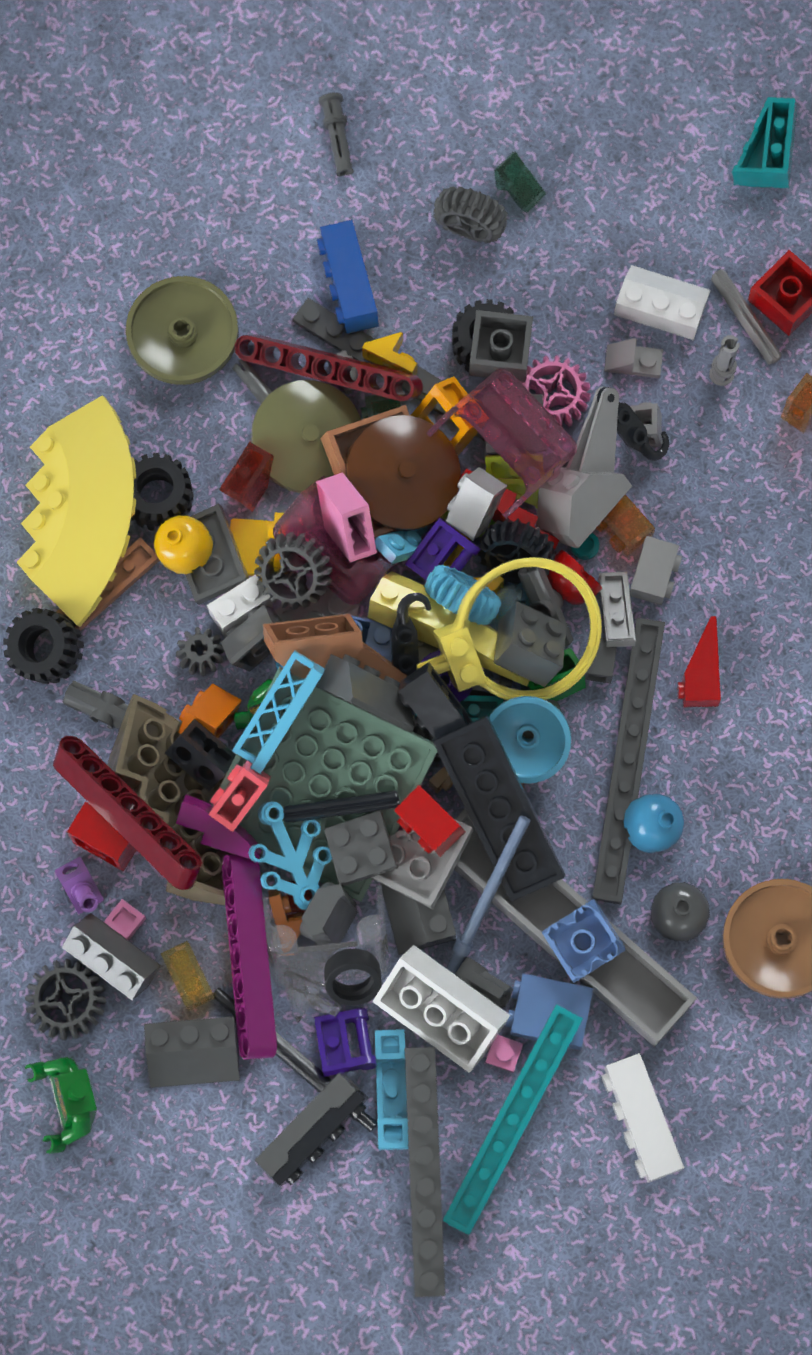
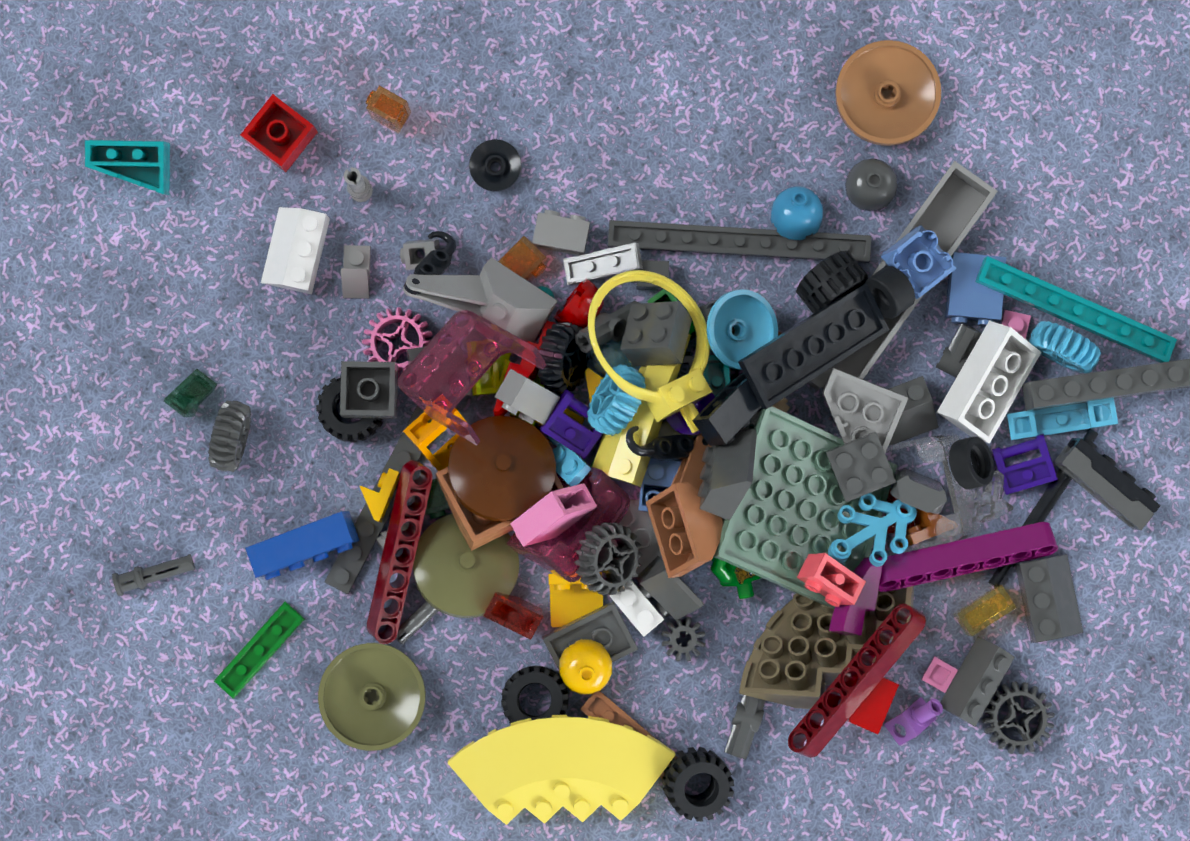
camera: 90 degrees left, 10 degrees up
(72, 1097) = (1104, 699): green torso -> none
(201, 755) = (790, 621): black brick -> none
(212, 710) = (747, 620): orange brick -> none
(246, 230) = (259, 650): none -> green tile
(289, 715) = (763, 543): medium azure fence -> none
(341, 806) = (826, 488): black axle -> none
(429, 821) = (835, 407): red brick -> none
(464, 943) = (925, 368): sand blue bar -> none
(471, 1099) = (1065, 347): none -> medium azure gear
(552, 903) = (891, 291): none -> black tyre
(574, 844) = (830, 280): none -> black tyre
(643, 1118) = (1058, 199): white brick -> none
(701, 678) = (654, 183): red slope -> none
(744, 499) = (495, 152): none -> black dish
(746, 316) = (302, 172): light grey axle -> none

